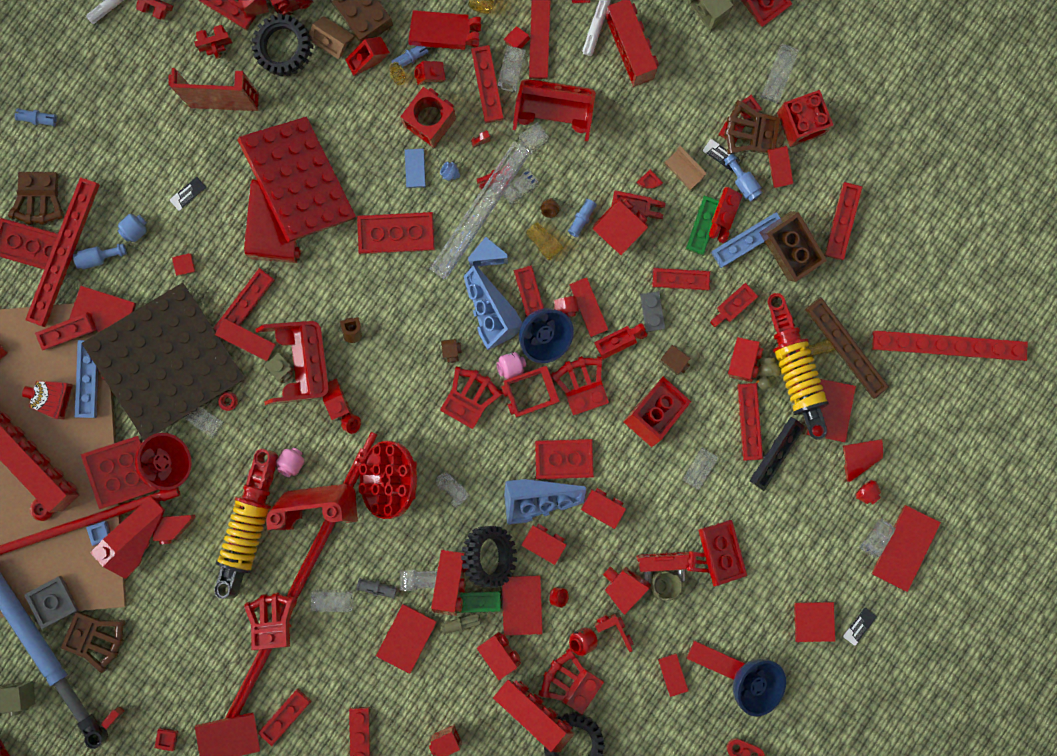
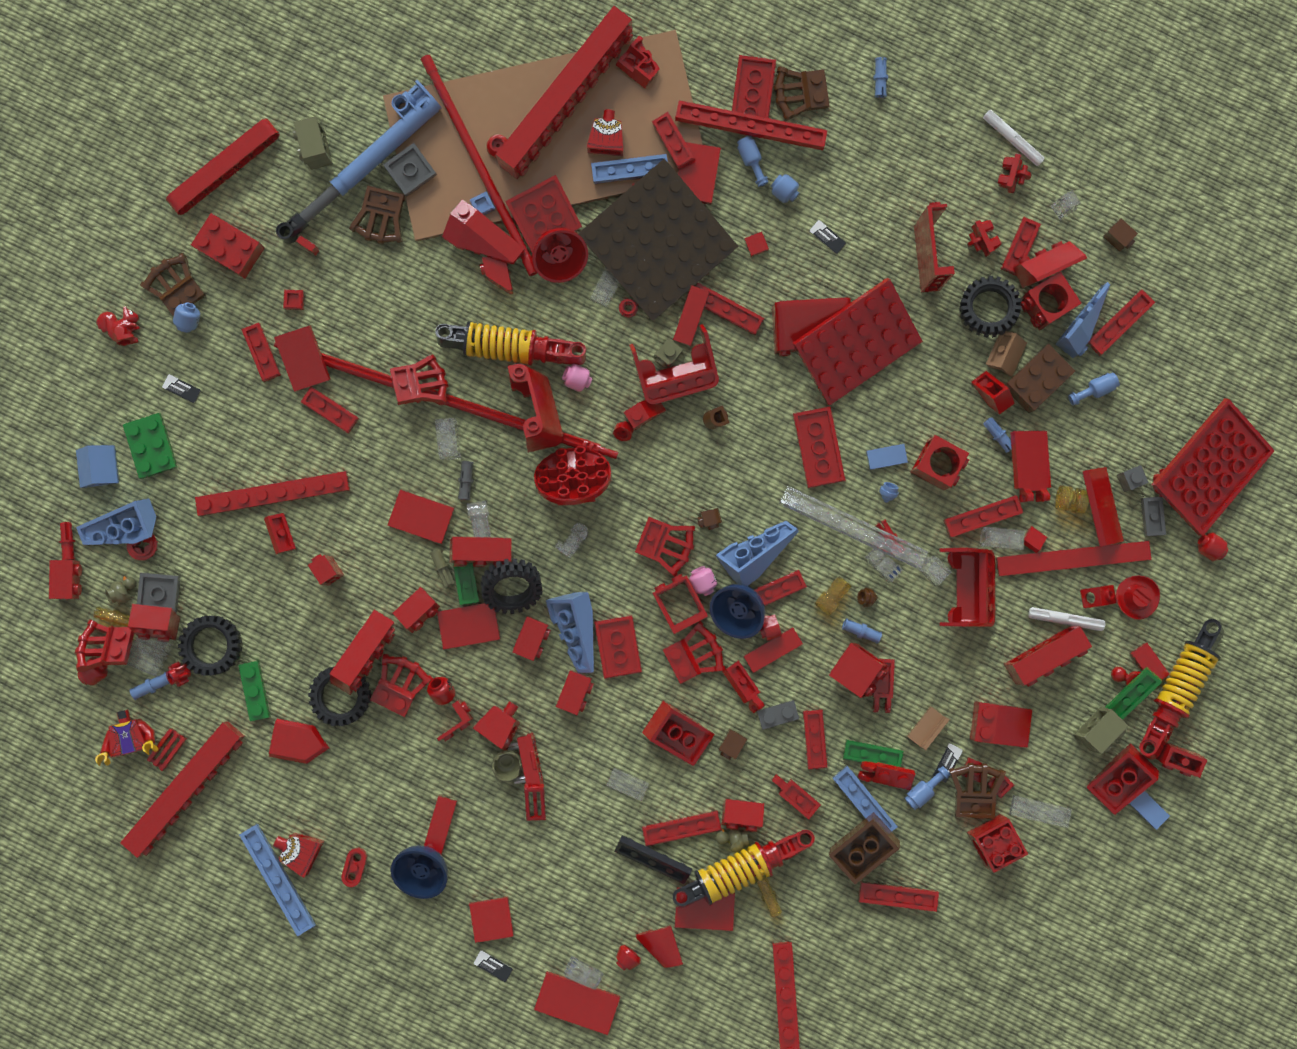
camera: 80 degrees right, 0 degrees up
(397, 73) = (979, 425): clear yellow pin -> none
(429, 72) = (986, 457): red bracket -> none
(483, 138) = (927, 520): red tile -> none
(487, 254) = (810, 541): medium blue slope -> none
(559, 597) = (481, 660): red tile -> none
(649, 180) = (910, 694): red tile -> none
(673, 675) = (420, 784): red tile -> none
(691, 98) = (1001, 724): none -> red slope
(722, 552) = (547, 817): red tile -> none
(780, 166) = (944, 824): red tile -> none
(846, 347) = (769, 916): reddish brown tile -> none

